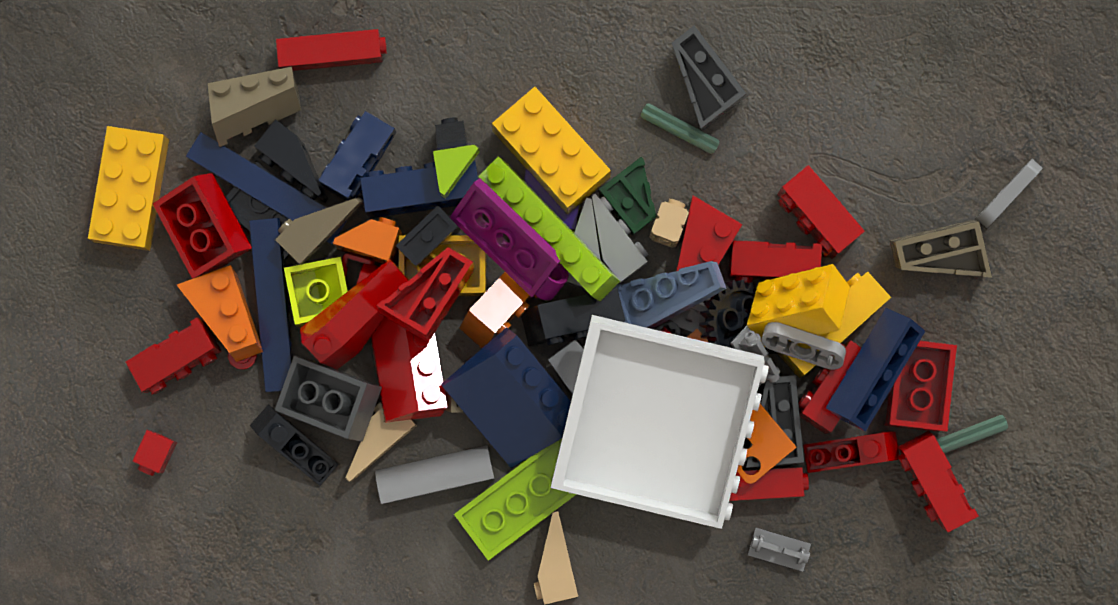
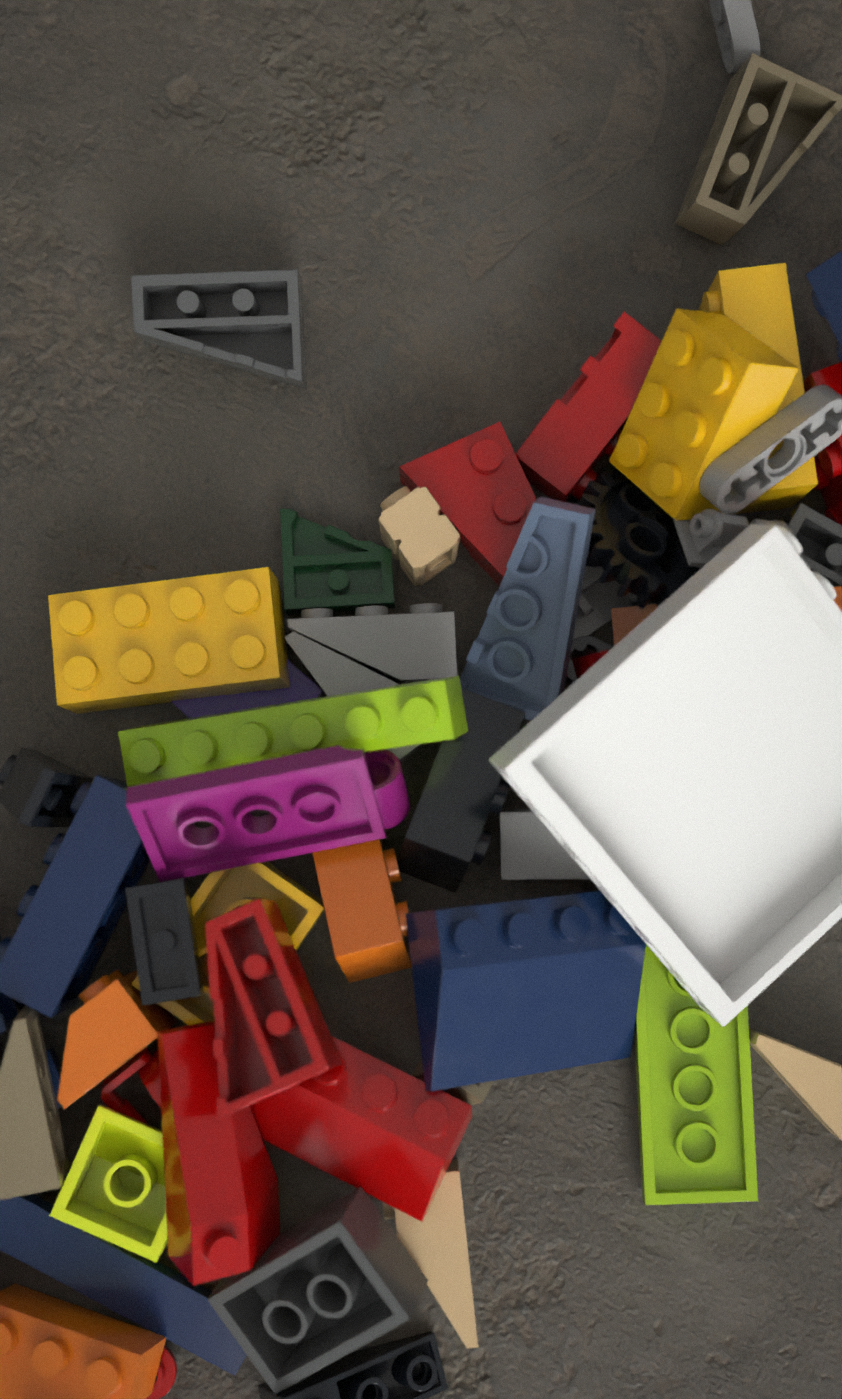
camera: 55 degrees left, 0 degrees up
(434, 474) = (558, 1192): light grey brick -> none
(452, 165) = (74, 818): lime slope -> none
(680, 128) = (278, 420): sand green axle -> none
(819, 212) = (564, 288): red brick -> none

